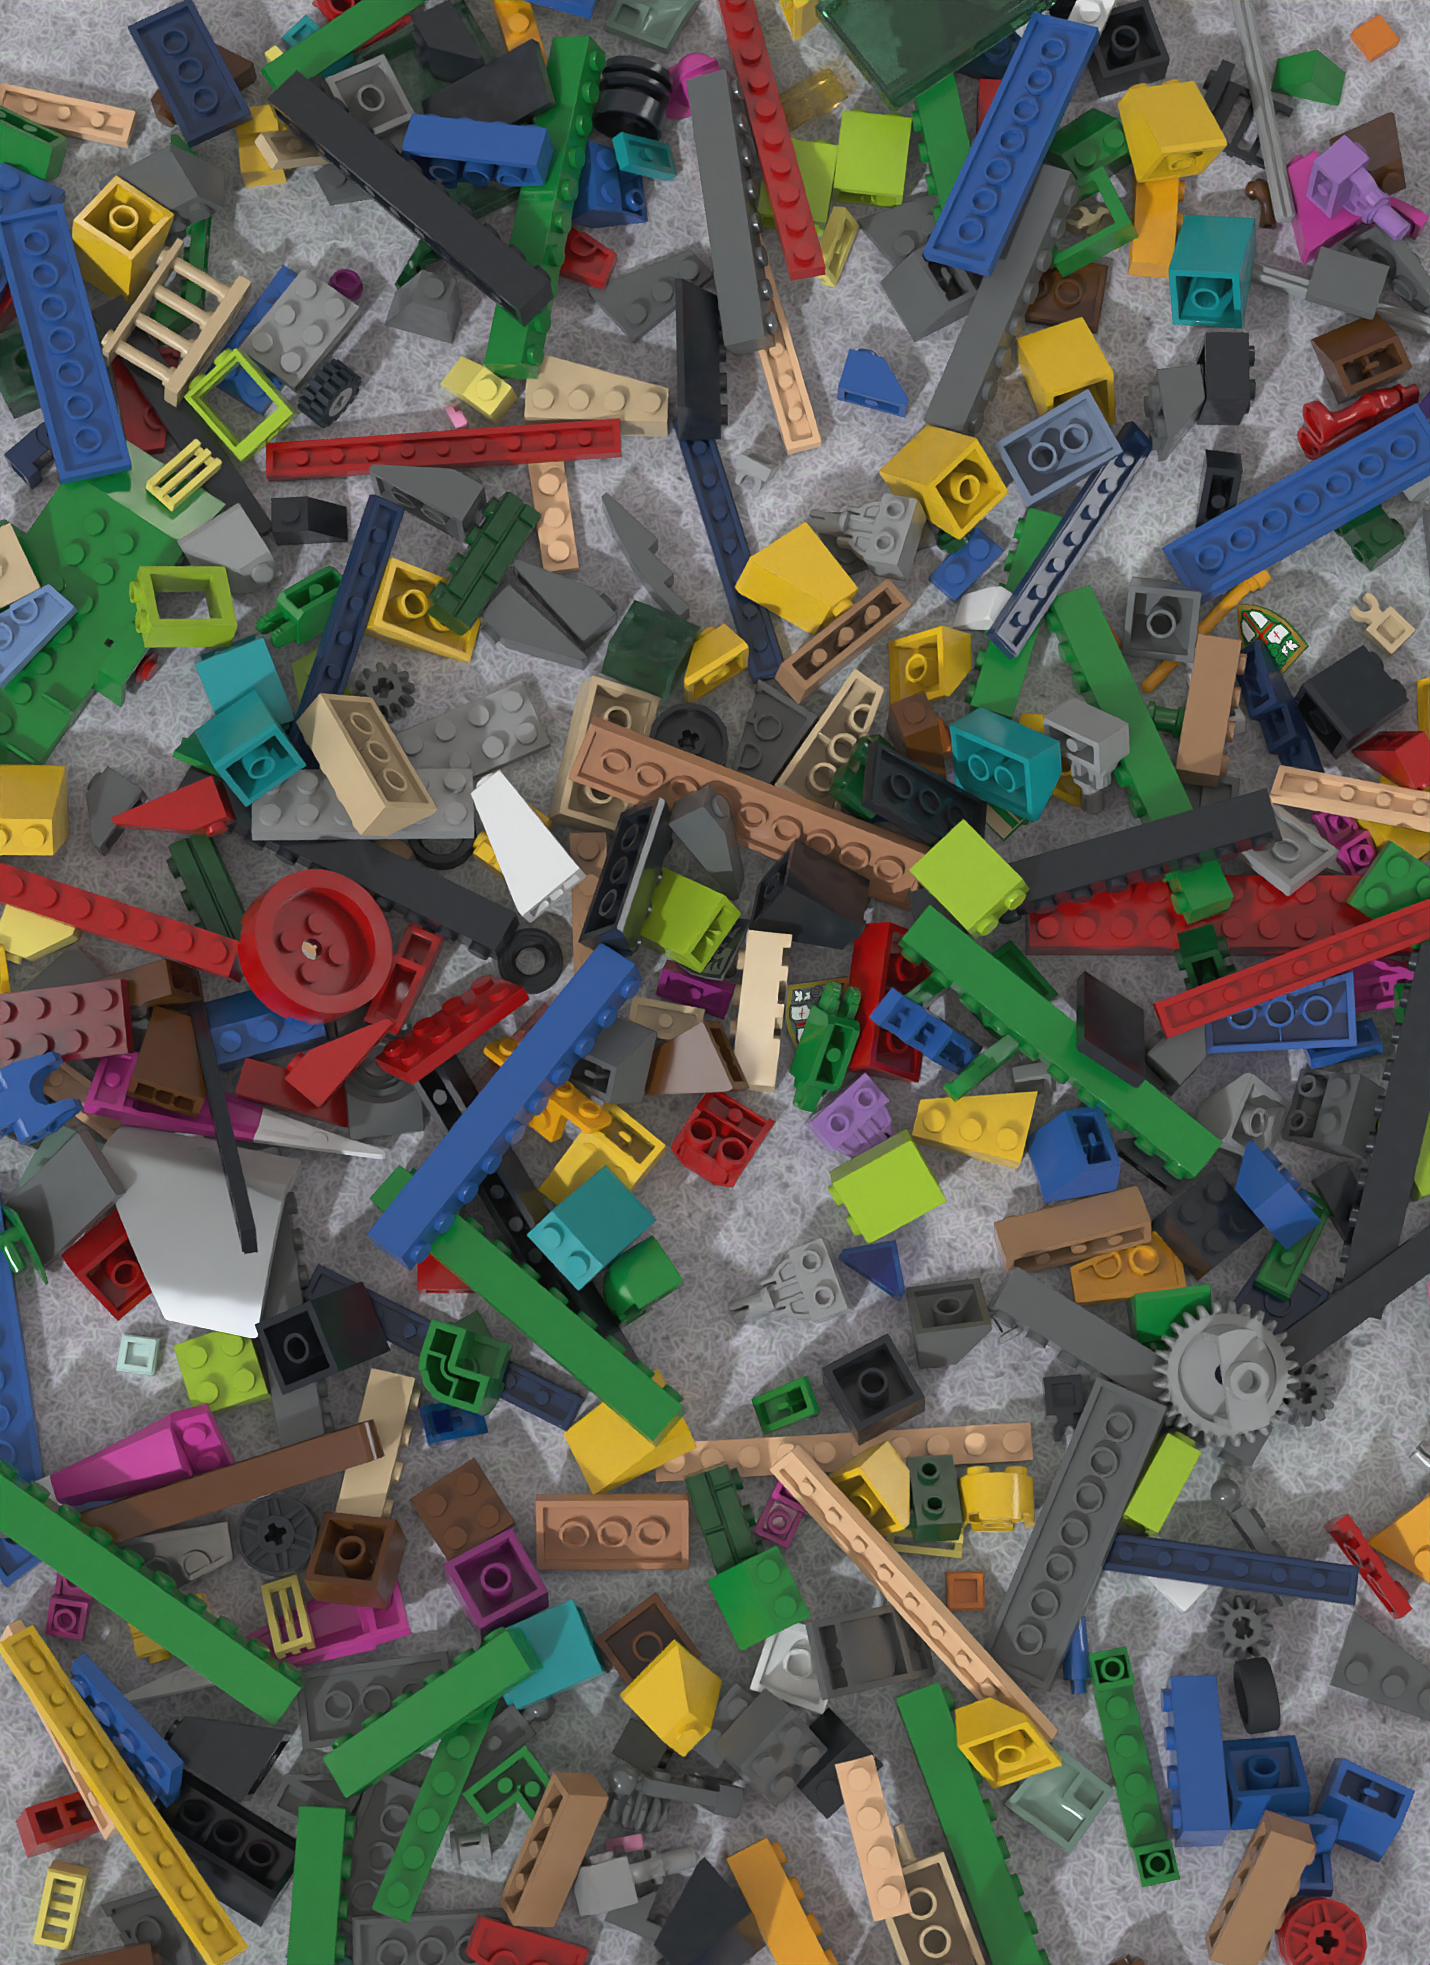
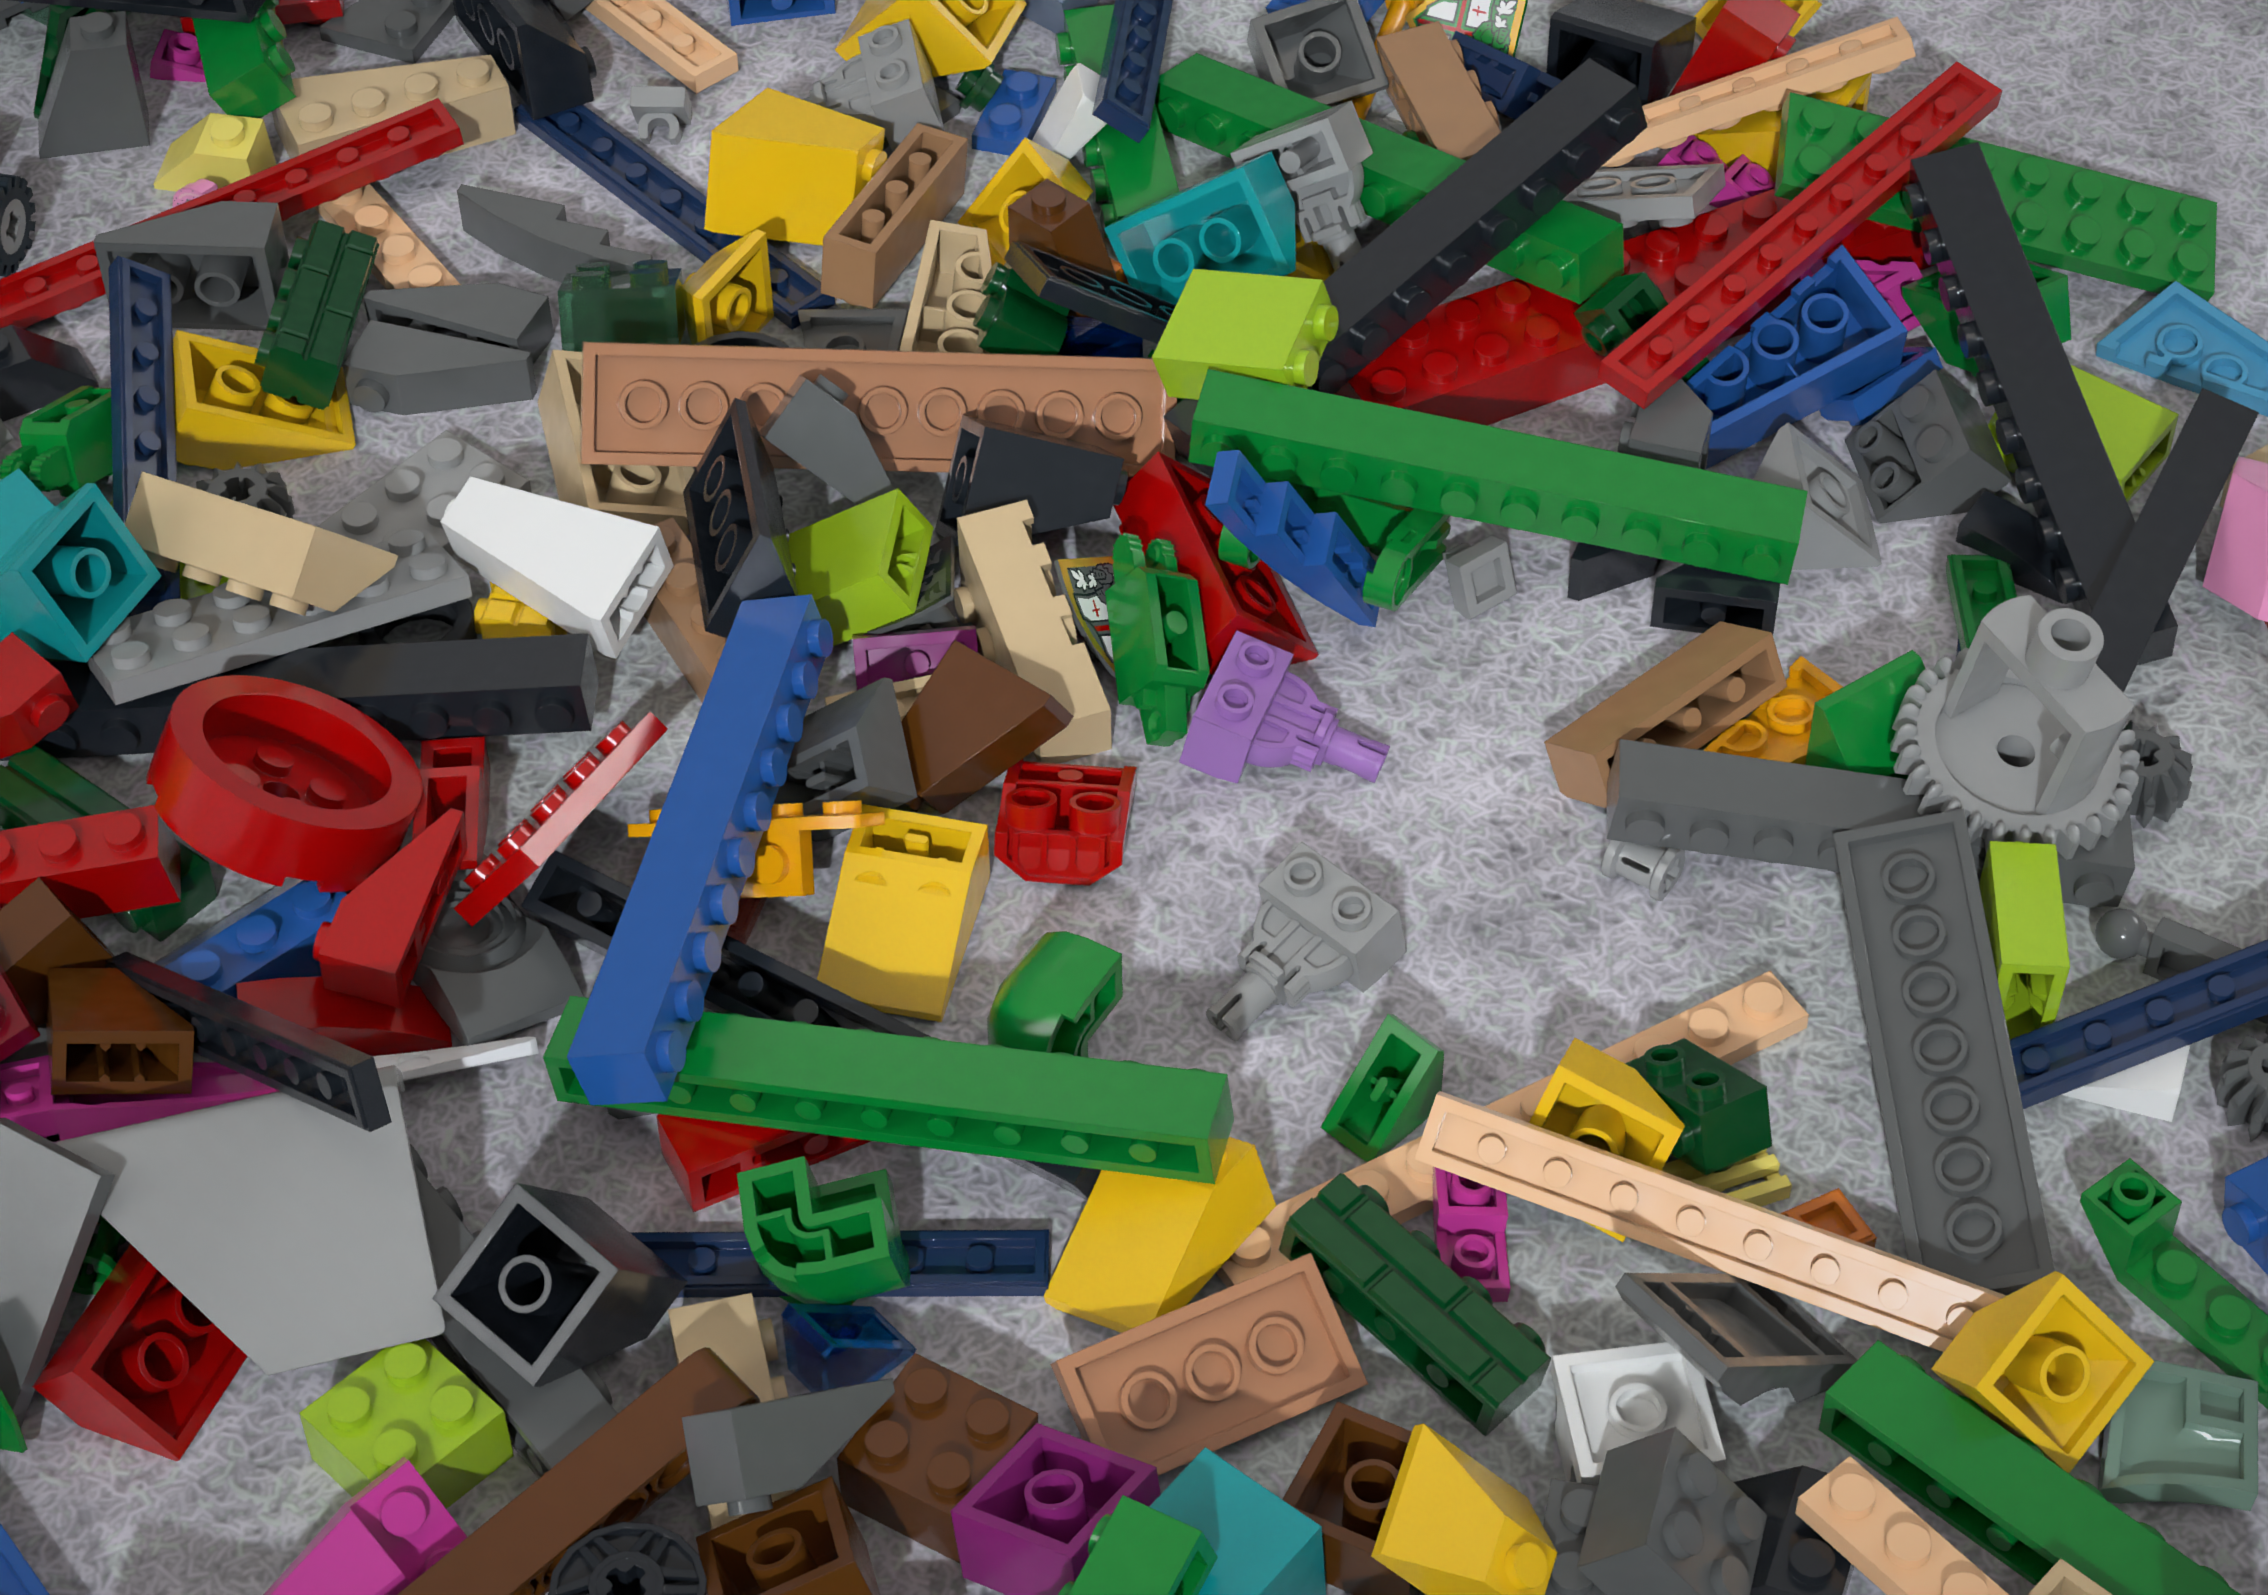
camera: 25 degrees left, 30 degrees down
(138, 1354) = (240, 1490): light aqua tile -> none
(378, 1489) = (773, 1444): none -> dark grey slope
(547, 975) = (635, 701): black tyre -> none
(591, 1227) = (930, 964): teal slope -> none
(758, 1598) = (1516, 1320): green slope -> none
(873, 1389) = (1507, 1005): black brick -> none
(877, 1264) = (1412, 870): clear blue slope -> none
(885, 1187) = (1357, 756): lime brick -> none
(947, 1321) = (1559, 899): dark grey slope -> none
(977, 1126) = (1438, 654): yellow wedge -> none
(996, 1499) = (1805, 1058): yellow brick -> none
(1063, 1399) = (1803, 923): black plate -> none
(1074, 1155) = (1608, 617): blue slope -> none
(1076, 1660) = (2072, 1246): blue cylinder -> none
(1110, 1030) = (1572, 422): black tile -> none
(1206, 1224) = (1848, 620): black brick -> none
(1274, 1197) = (1930, 538): blue slope -> none

